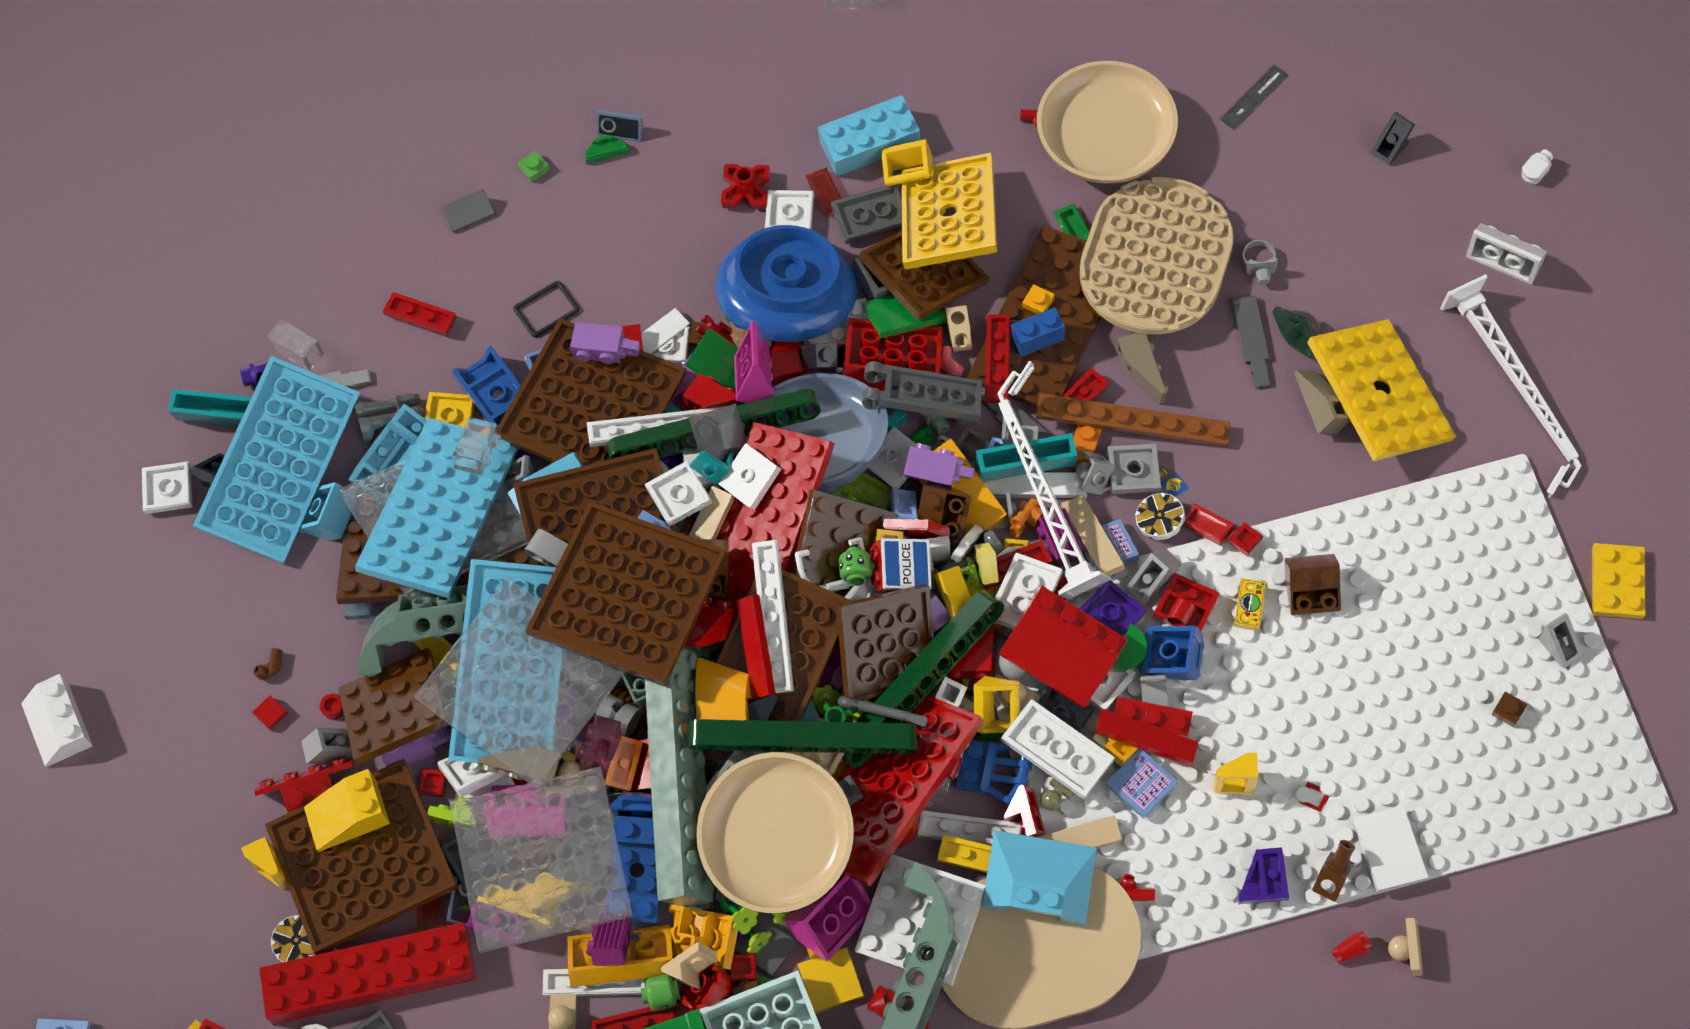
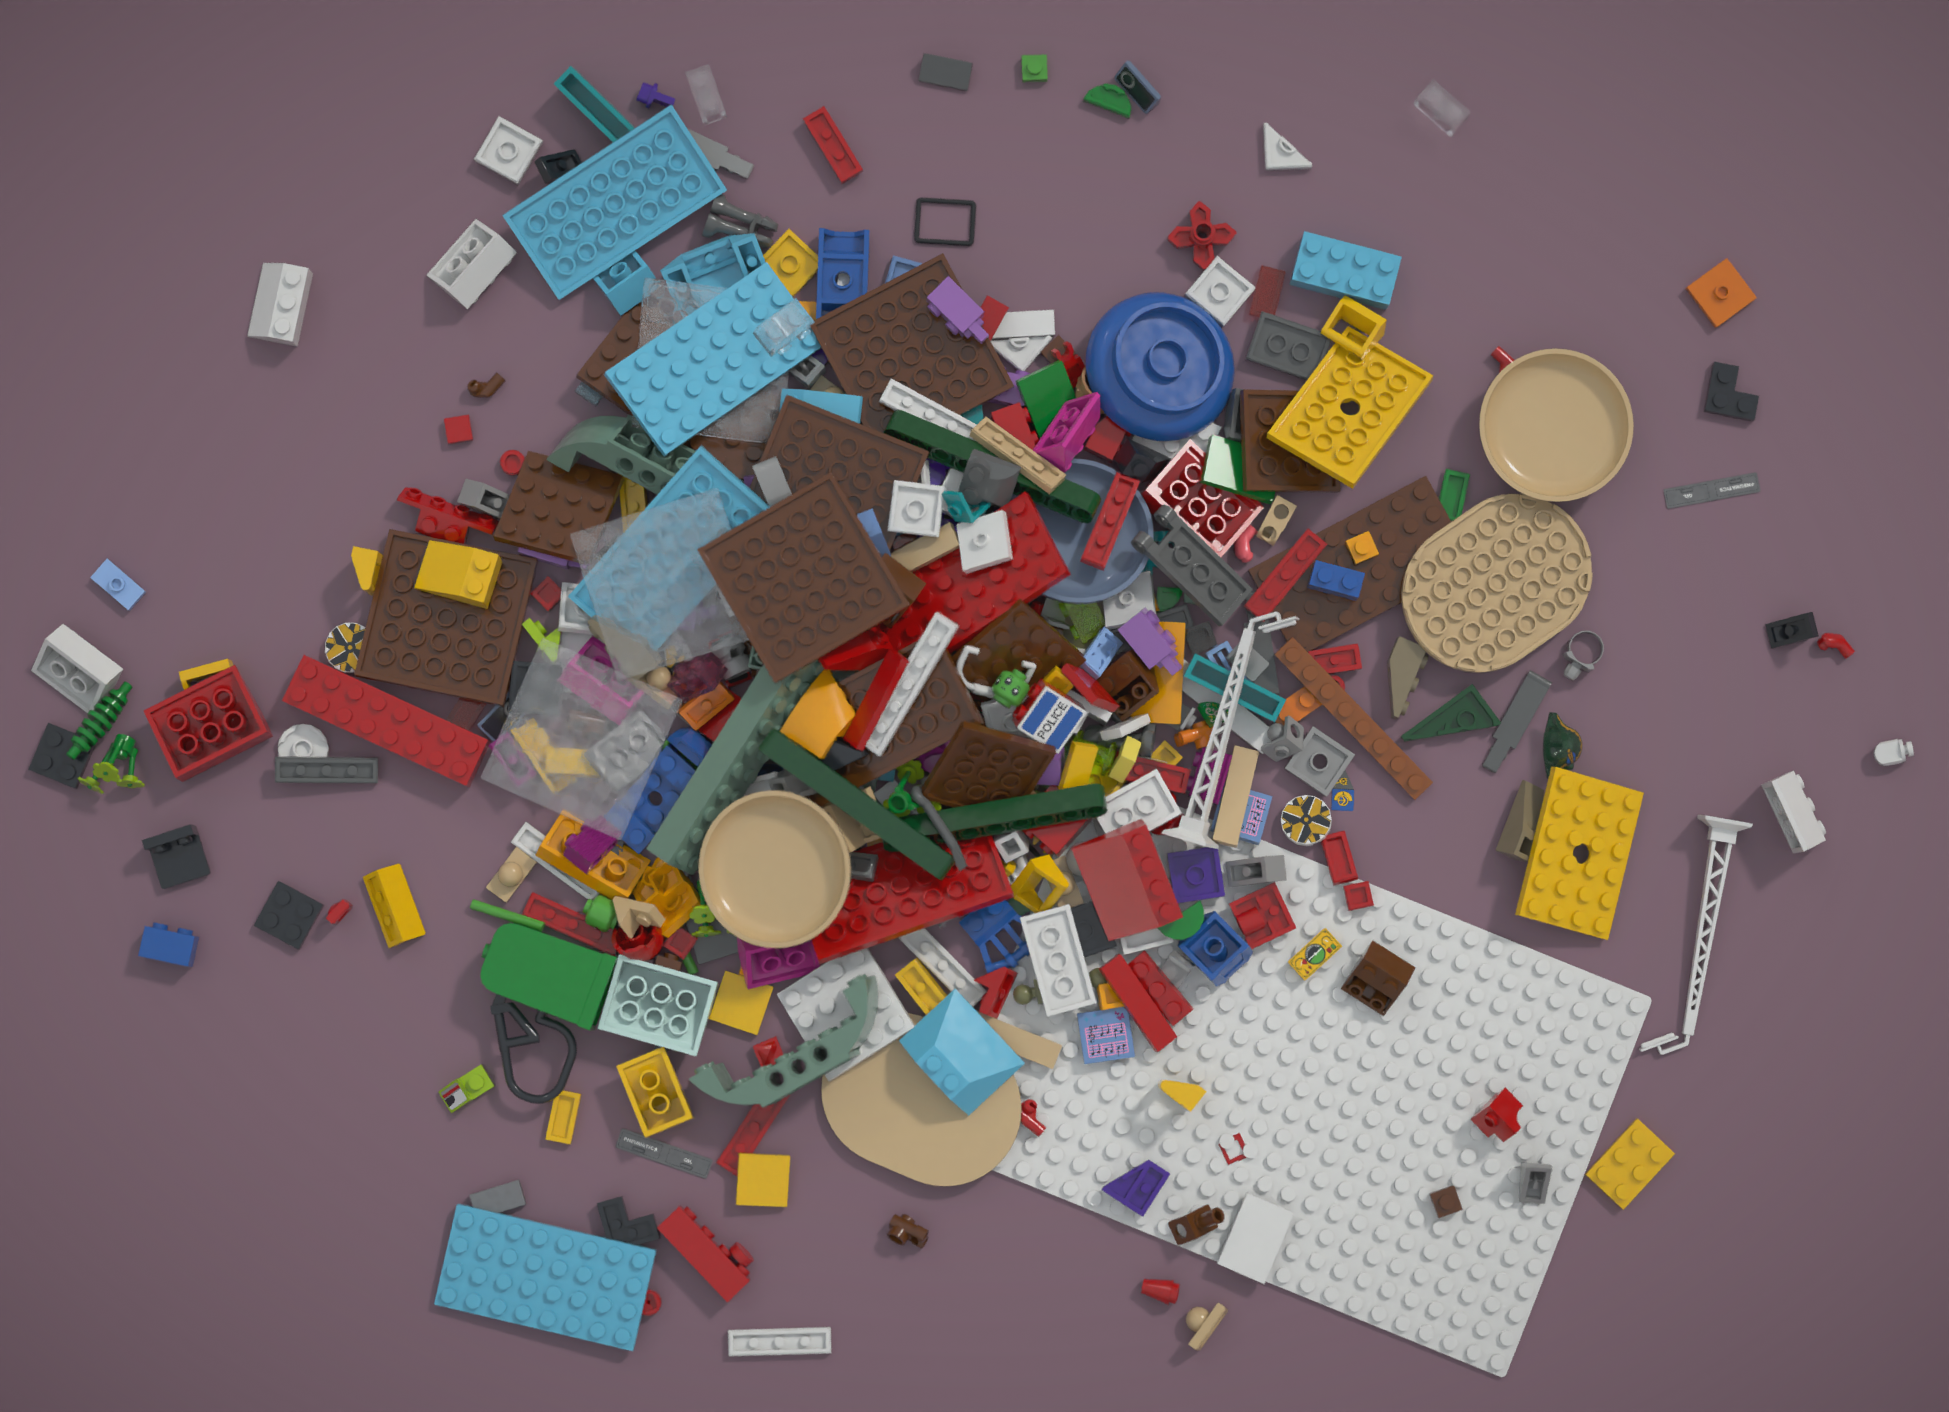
camera: 25 degrees right, 20 degrees up
(194, 584) = (472, 263): none -> white slope
(745, 402) = (1014, 451): none -> tan tile
(759, 99) = (1280, 153): none -> white tile
(835, 404) = (1110, 521): none -> red tile
(1023, 490) = (1209, 712): none -> green tile
(1208, 34) = (1723, 398): none -> black plate
(1209, 361) = (1460, 714): none -> dark green wing
(1431, 126) = (1835, 641): none -> red arm
(1492, 613) = (1499, 1116): none -> red brick

